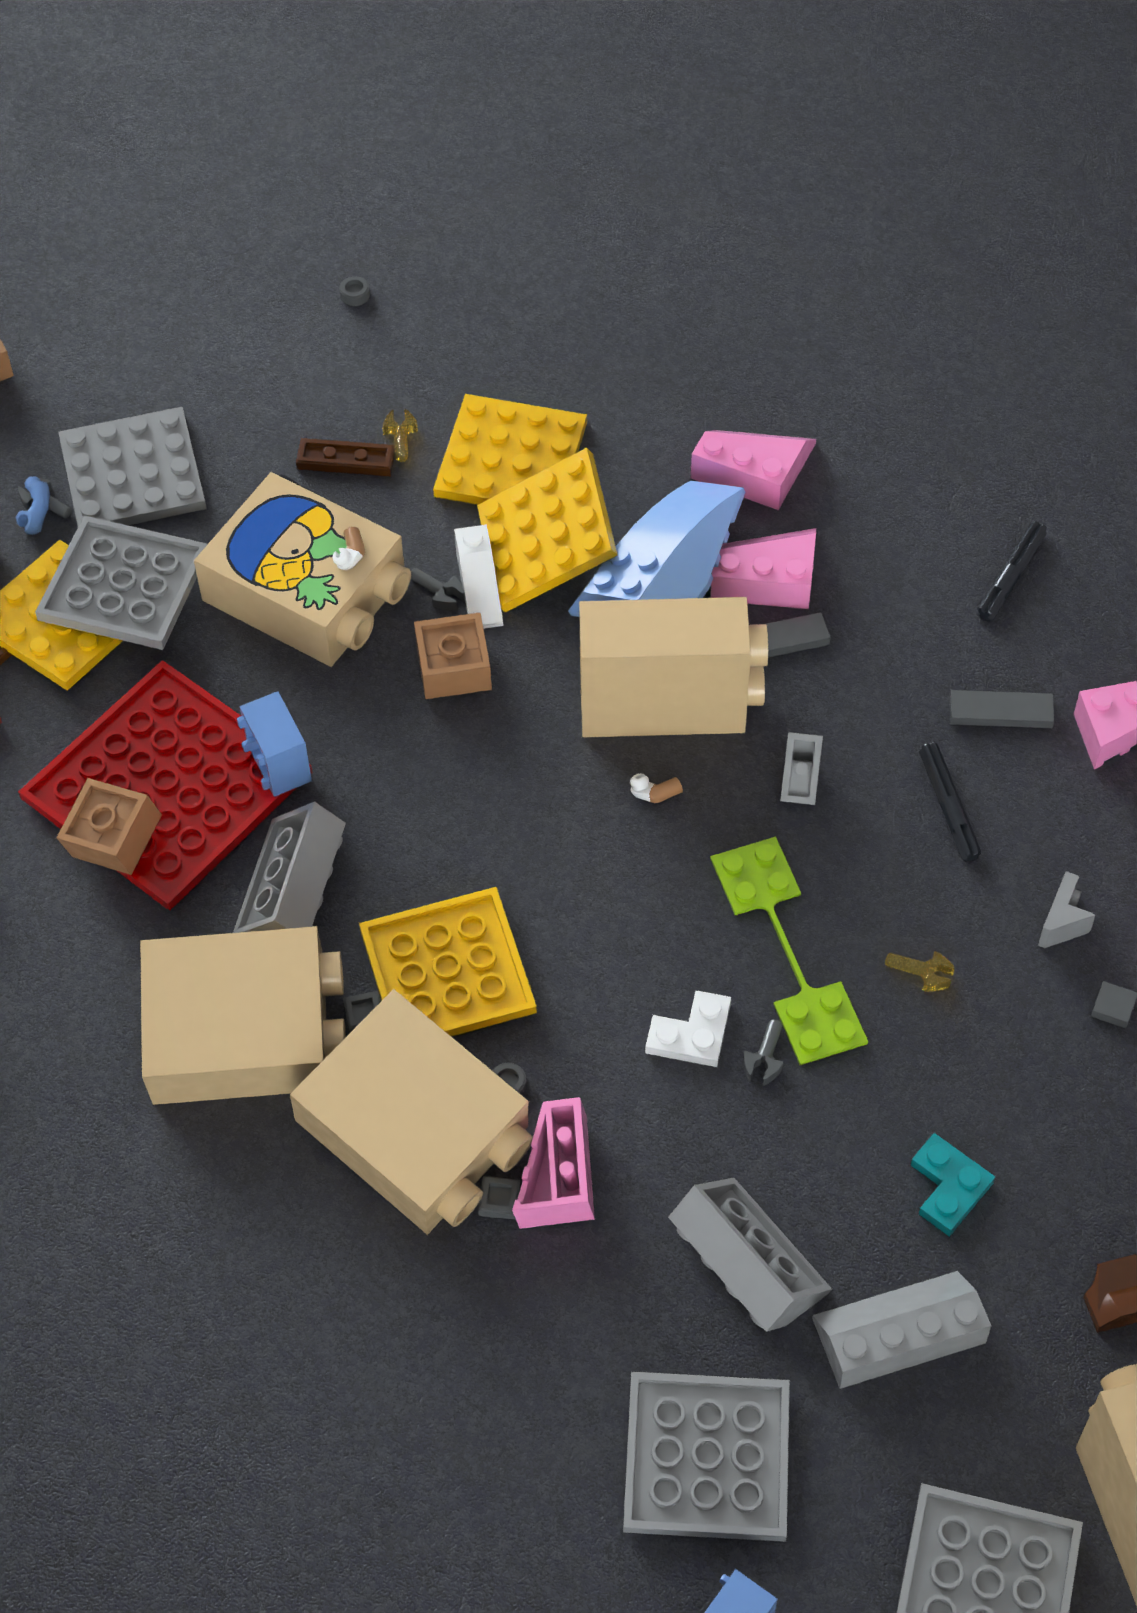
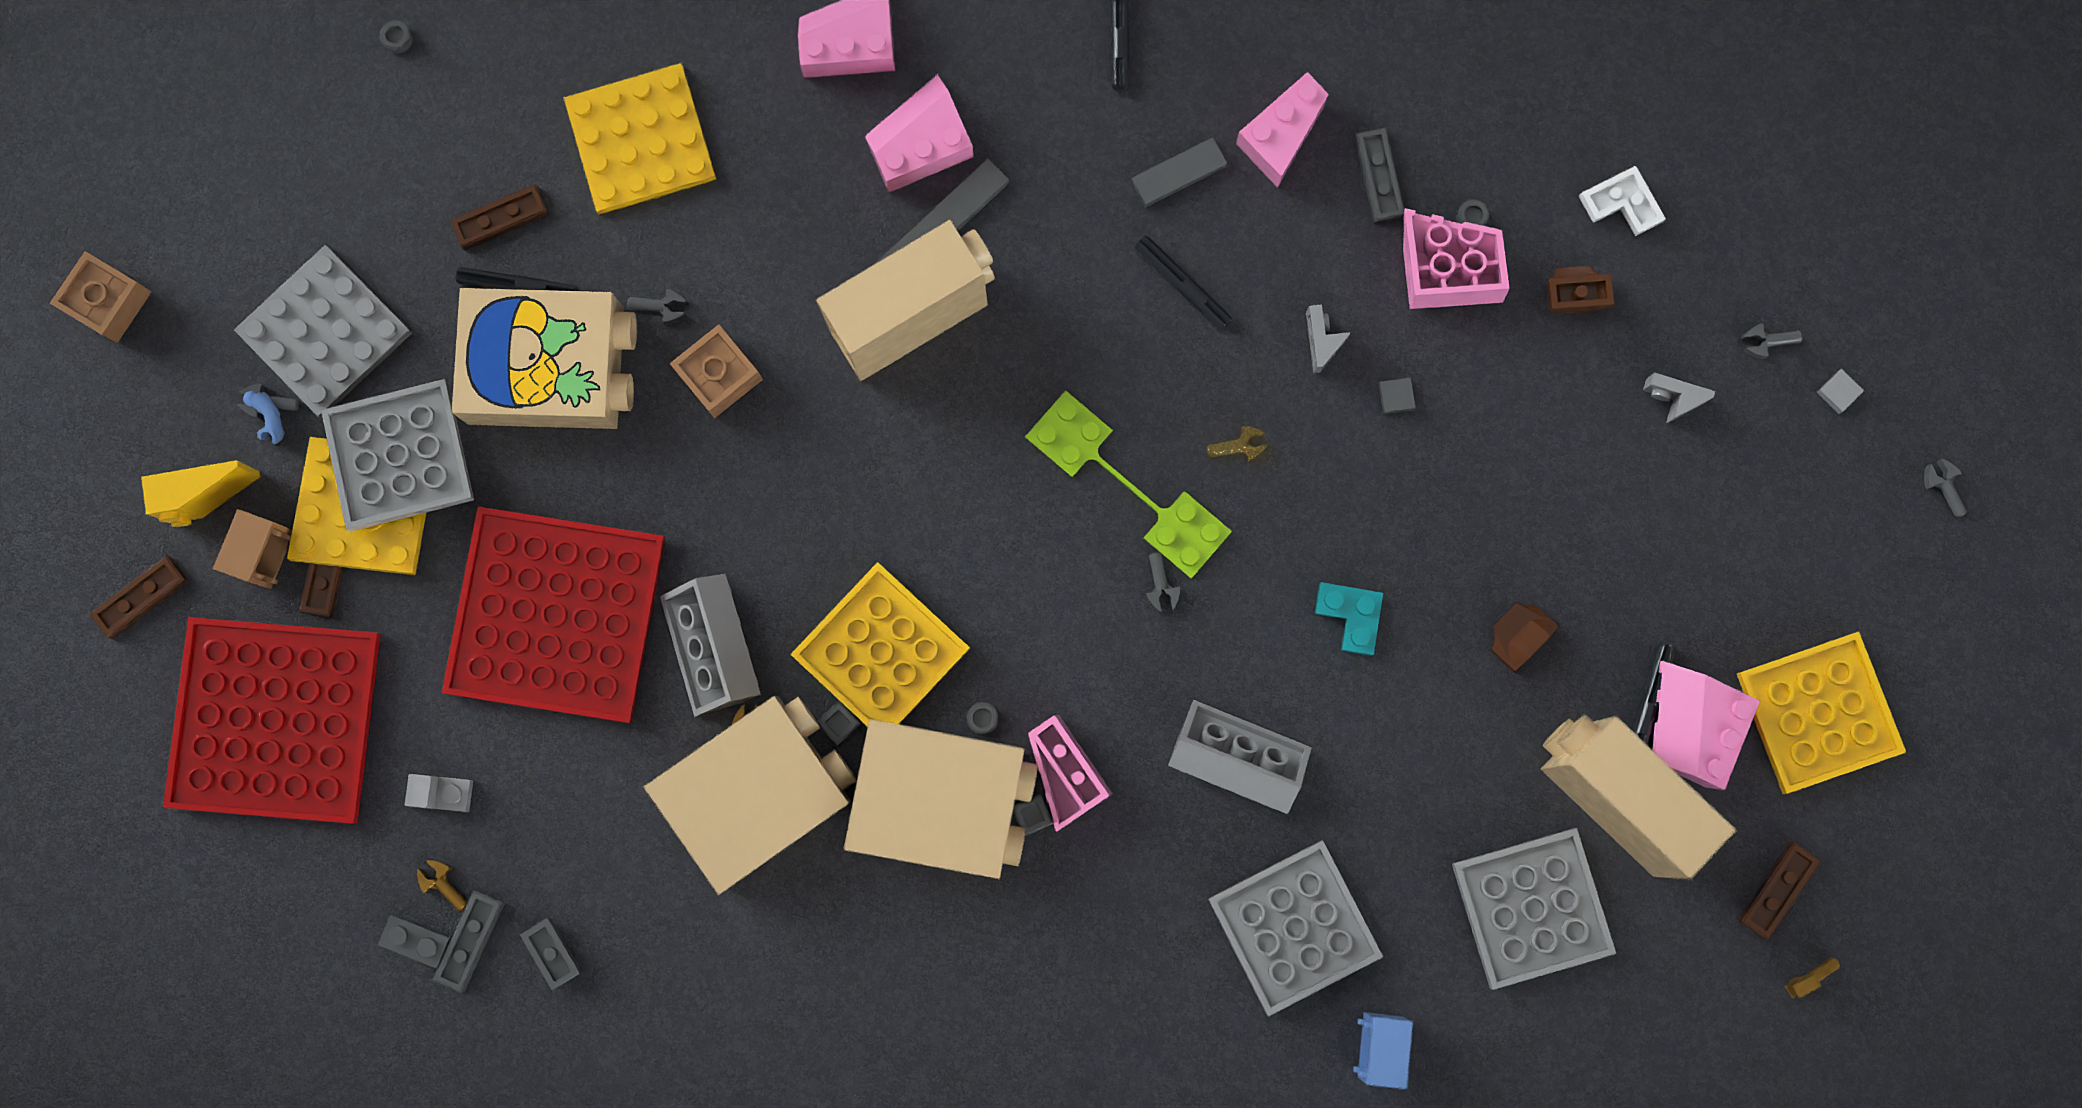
camera: 30 degrees left, 25 degrees up
(109, 826) = (543, 691): medium nougat container -> none
(275, 744) = (629, 544): medium blue container -> none
(353, 552) = (584, 332): arm -> none
(409, 425) = (531, 167): clear yellow bar -> none
(478, 574) = (689, 280): white slope -> none
(548, 529) = (723, 208): yellow plate -> none
(652, 792) = (947, 404): arm -> none
(669, 548) = (837, 181): light blue wedge -> none
(694, 1040) = (1103, 602): white plate -> none
(801, 768) = (1056, 323): light grey slope -> none
(902, 1328) = (1377, 750): light grey slope -> none

